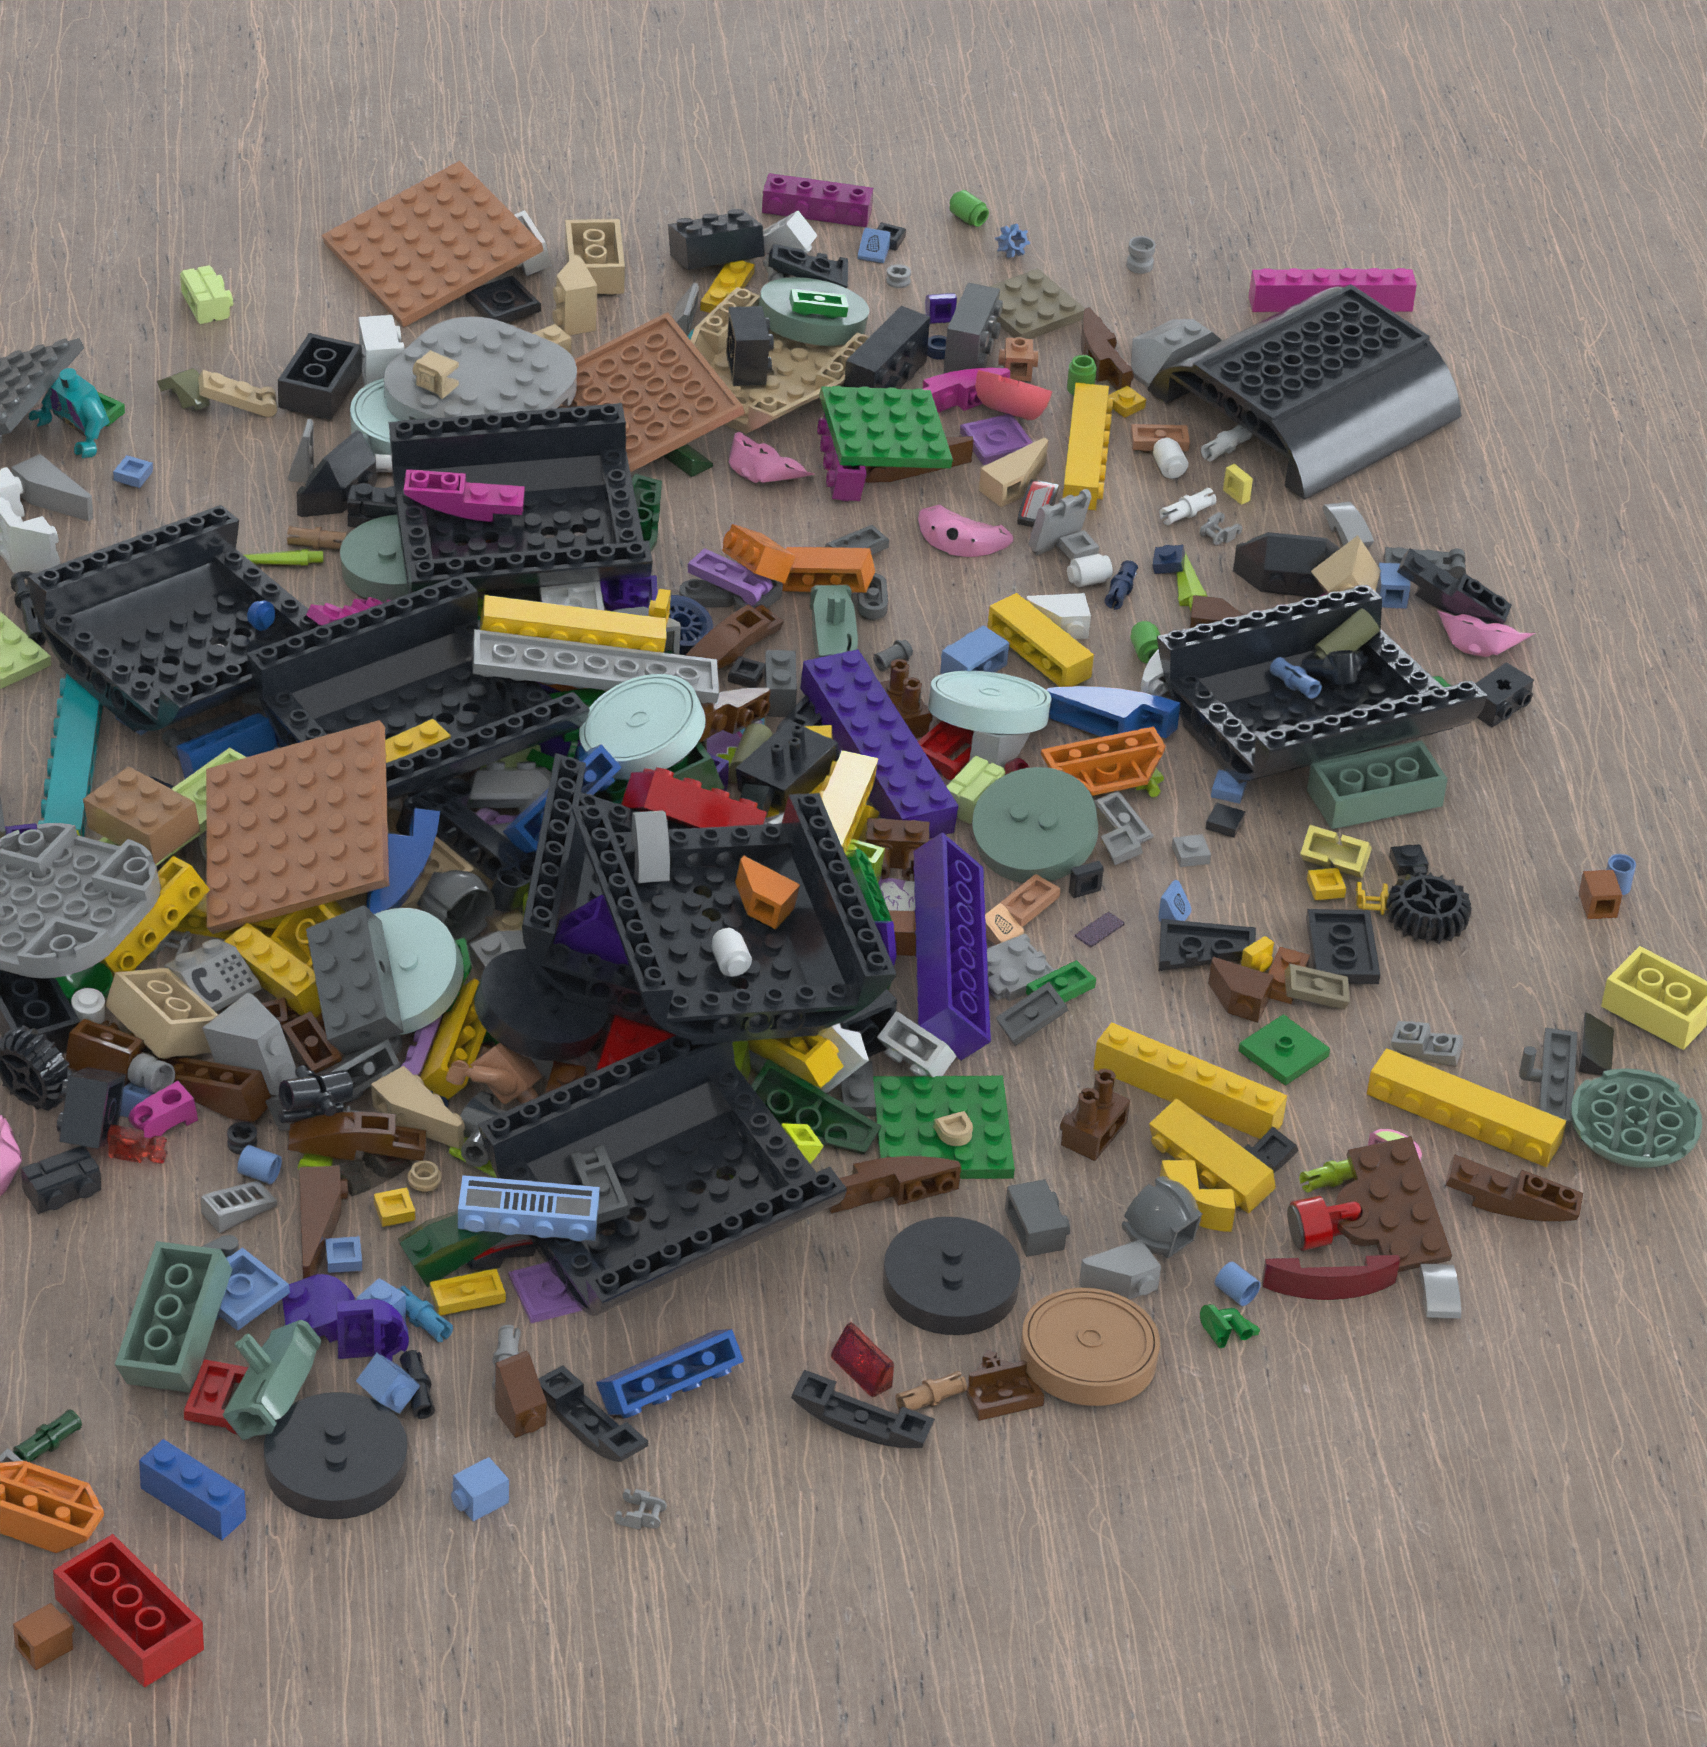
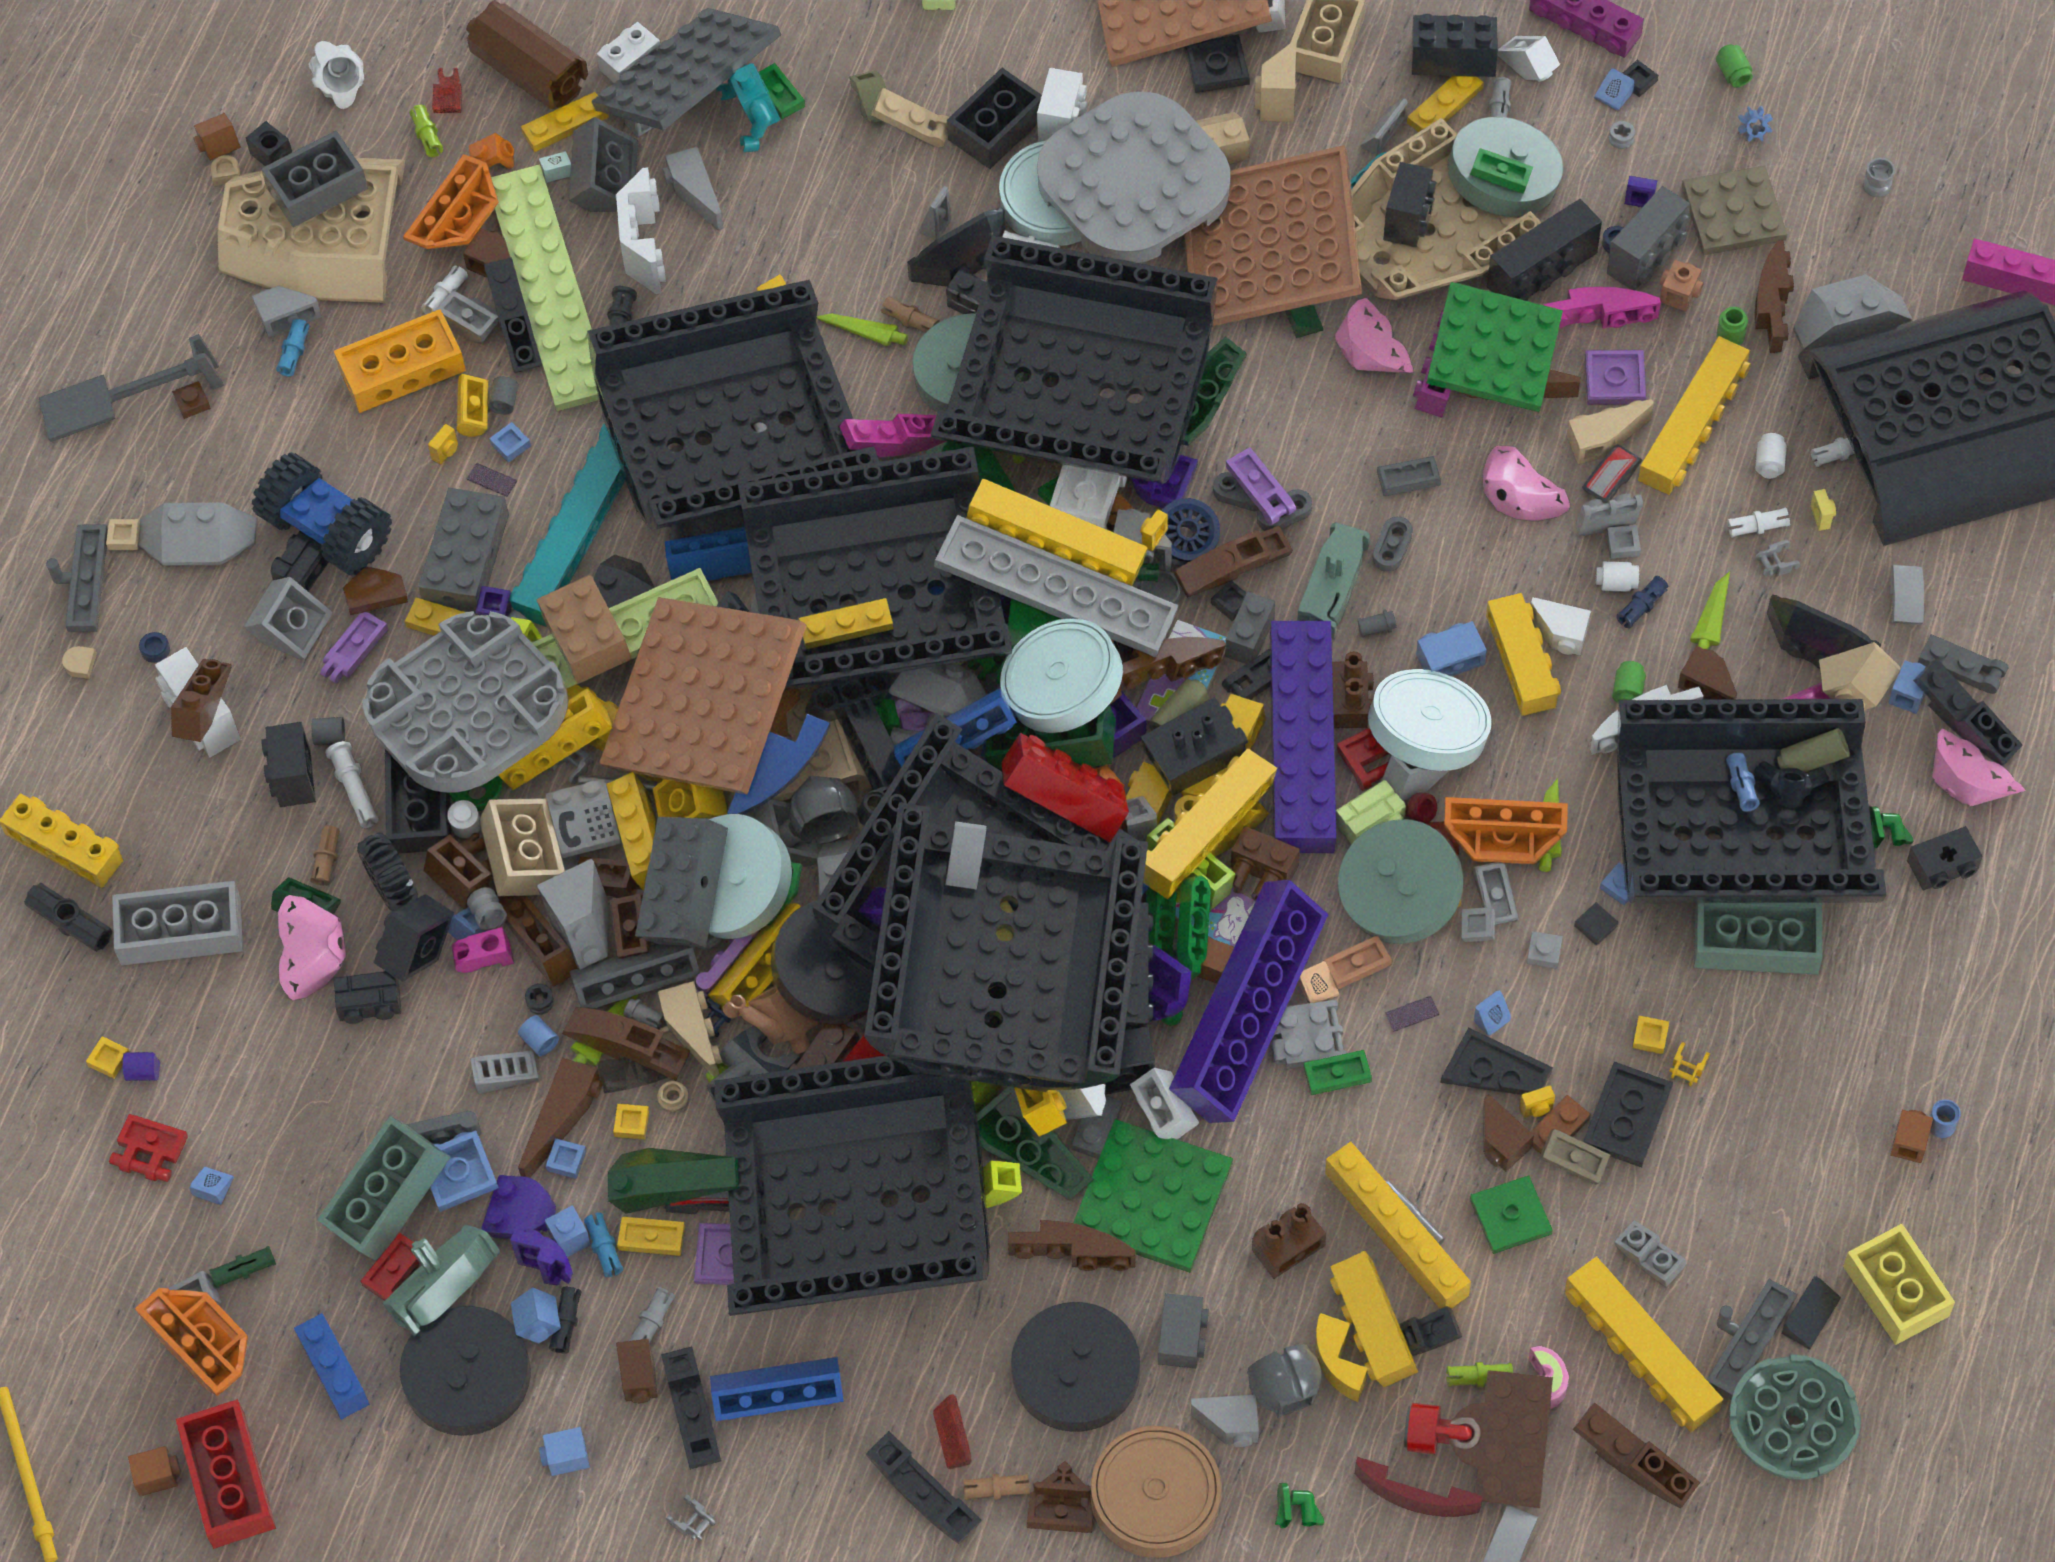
camera: 30 degrees right, 20 degrees up
(131, 1145) = (441, 976): clear red plate -> none
(133, 471) = (778, 185): medium blue plate -> none
(261, 615) = (803, 410): blue plate -> none
(313, 1094) = (599, 990): black pin -> none
(432, 373) = (1082, 168): tan window -> none
(455, 496) = (1032, 334): dark pink slope -> none
(528, 1208) = (718, 1186): light blue brick -> none
(597, 1171) = (803, 1170): dark grey plate -> none
(731, 952) = (991, 992): white brick -> none
(758, 553) = (1297, 469): orange brick -> none
(760, 794) = (1144, 778): black tile -> none
(765, 892) = (1057, 934): orange slope -> none
(799, 264) = (1533, 106): black wing -> none
(830, 567) = (1358, 503): orange brick -> none
(954, 1129) = (1153, 1209): tan tile -> none
(1011, 395) = (1644, 336): coral brick -> none
(1032, 1013) = (1290, 1099): dark grey plate -> none
(1086, 879) = (1422, 956): black tile -> none
(1112, 710) = (1549, 762): blue slope -> none
(1127, 401) = (1768, 365): yellow plate -> none
(1146, 435) = (1766, 419): nougat plate -> none
(1168, 559) = (1705, 583): dark blue plate -> none
(1237, 1283) = (1326, 1468): medium blue beam -> none
(1323, 849) = (1666, 993): light yellow piece -> none
(1409, 860) = (1748, 1033): black plate -> none
(1428, 907) = (1708, 1096): black gear -> none

